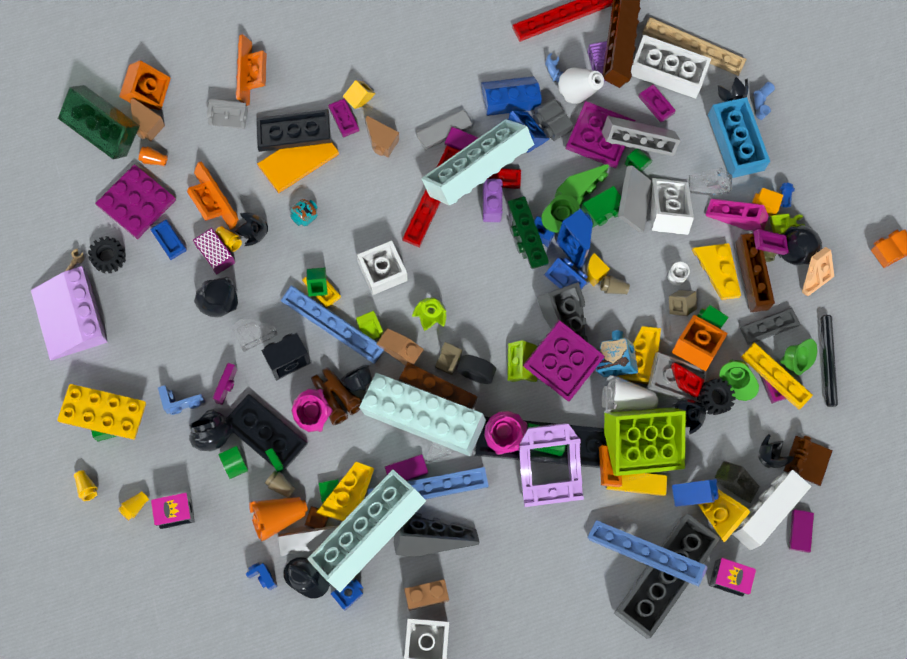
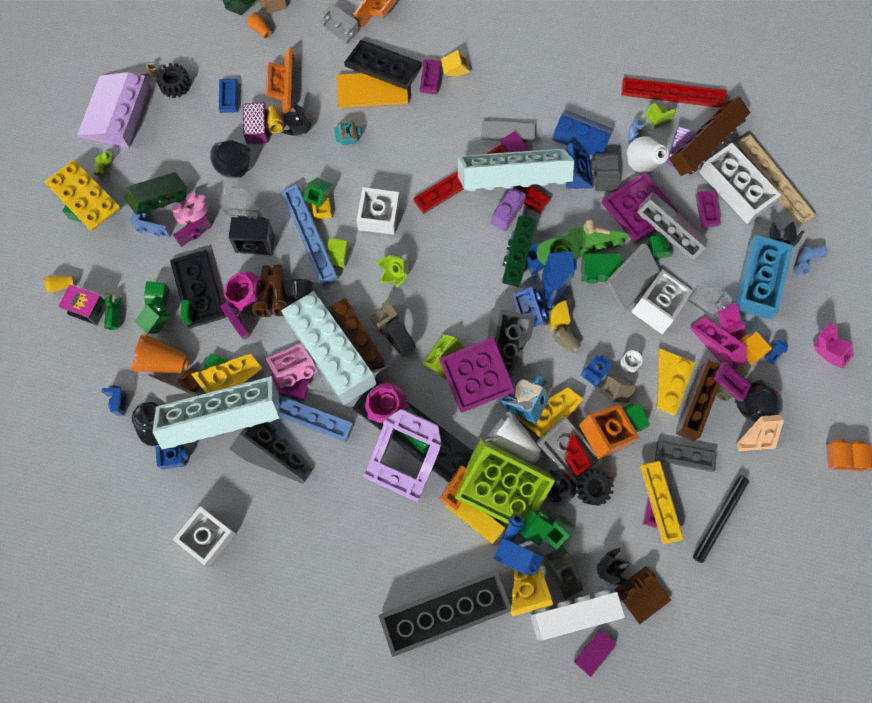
camera: 35 degrees right, 0 degrees up
(85, 487) = (33, 247): yellow cone -> none
(92, 371) = (101, 161): none -> lime arm
(135, 201) = (223, 53): magenta plate -> none
(171, 369) = (155, 193): none -> dark green brick
(202, 368) = (191, 208): none -> bright pink plate
(203, 502) = (112, 313): none -> green bar
(210, 431) = (154, 260): black helmet -> none
(246, 484) = (152, 318): none -> green brick
(279, 484) = (179, 334): dark tan cone -> none
(322, 440) = (236, 320): none -> magenta plate
(382, 137) = (450, 108): medium nougat slope -> none
(399, 347) = (348, 282): medium nougat slope -> none
(399, 450) = (291, 365): none -> bright pink plate
(426, 595) = (232, 498): medium nougat brick -> none
(564, 42) = (659, 115): none -> lime panel
(574, 177) = (590, 228): none -> tan hand
(647, 553) = (438, 583): medium blue plate -> none
(653, 302) = (594, 375): none -> blue brick
(676, 466) = (515, 524): none -> blue pin
(692, 458) = (536, 526): none -> green brick
(711, 451) = (560, 532): none -> green brick
(732, 577) = (503, 653): dark pink piece -> none
(737, 191) = (731, 321): none -> dark pink slope
(741, 379) = (626, 485): bright green piece -> none
(782, 222) = (757, 372): lime plate -> none
(800, 356) = (696, 499): bright green piece -> none
(827, 165) = (833, 348): none -> dark pink brick

